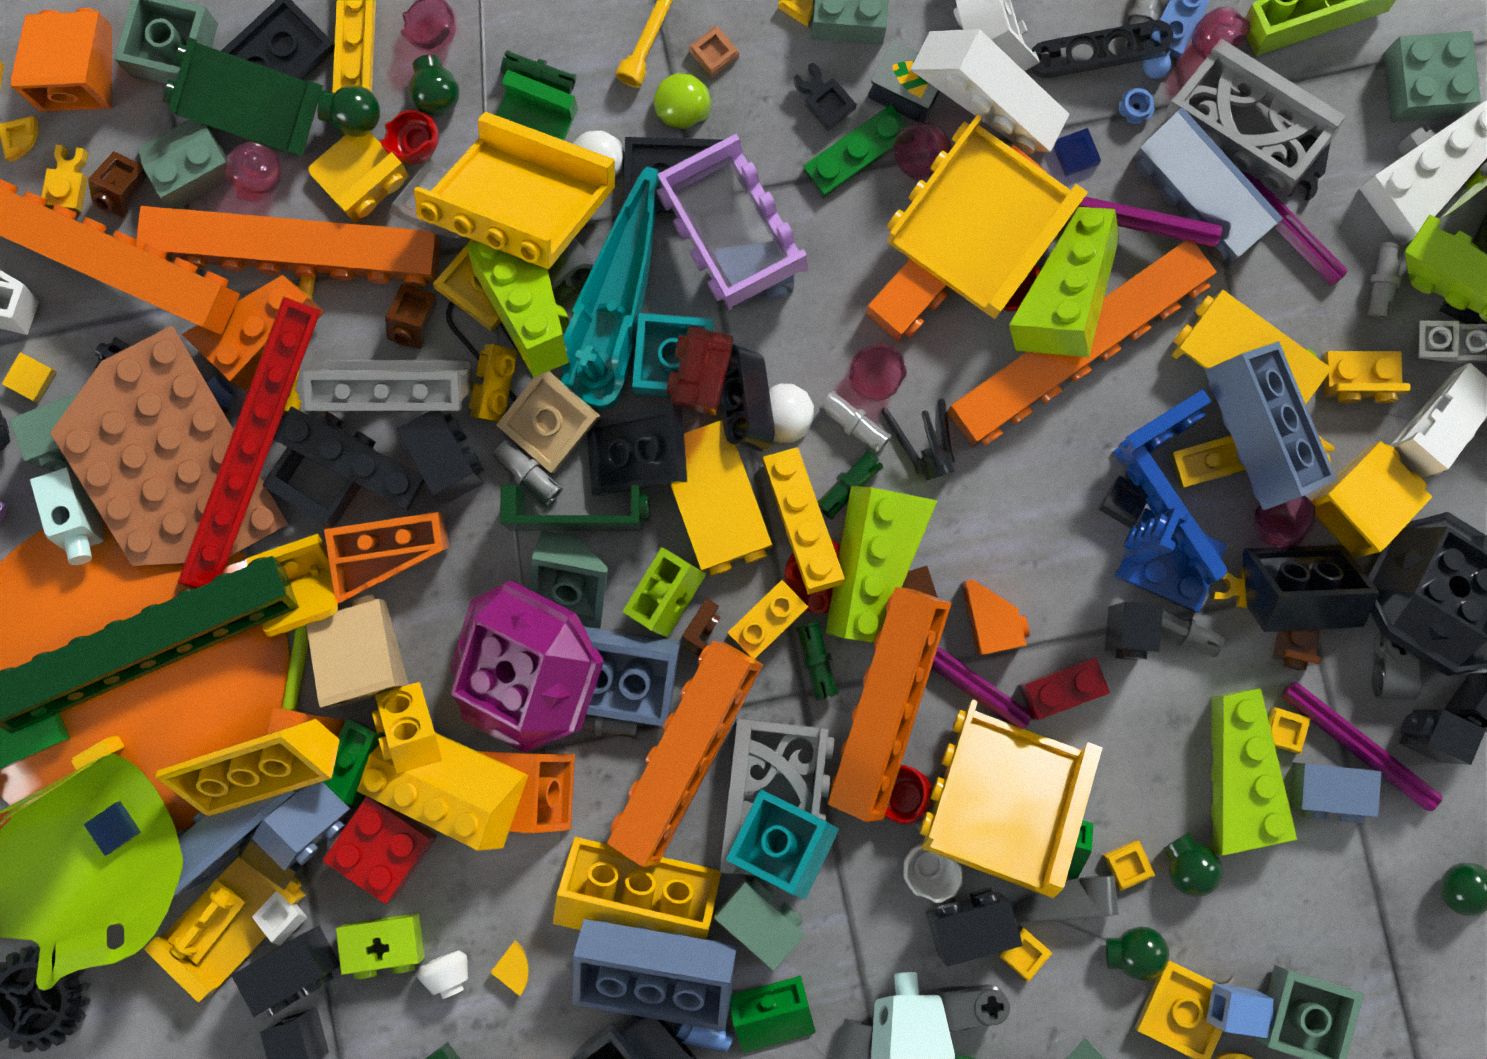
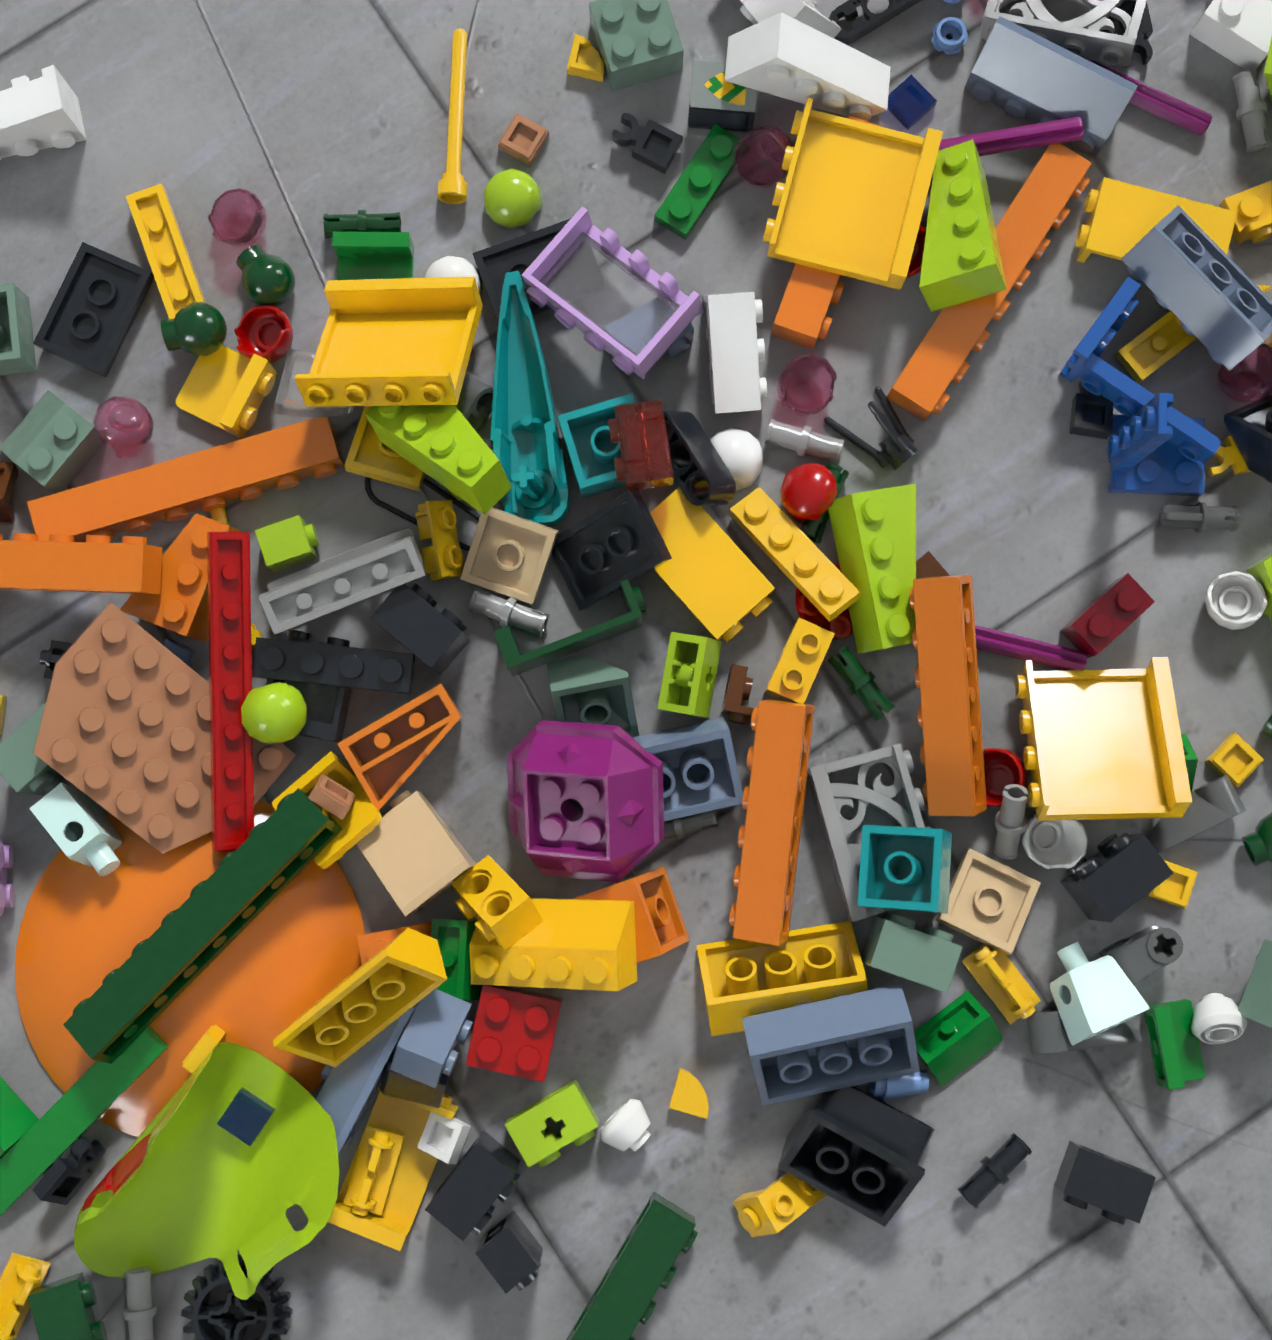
camera: 20 degrees left, 0 degrees up
(242, 98) = (86, 358): dark green panel -> none
(279, 480) = (274, 713): none -> lime hair
(296, 669) = (360, 890): lime bar -> none
(300, 574) = (331, 796): none -> nougat tile
(356, 332) = (287, 543): none -> lime brick
(409, 316) = (333, 507): reddish brown bracket -> none
(823, 317) = (735, 351): none -> white wedge
(834, 980) = (1002, 983): none -> yellow hinge
(838, 469) = (808, 491): none -> red hair
(851, 903) = (989, 901): none -> tan plate
(899, 839) = (1010, 821): none -> light grey pin
(993, 620) = (1012, 577): orange slope -> none
(1133, 630) = (1152, 533): black brick -> none
(1187, 720) = (1235, 600): none -> white hair

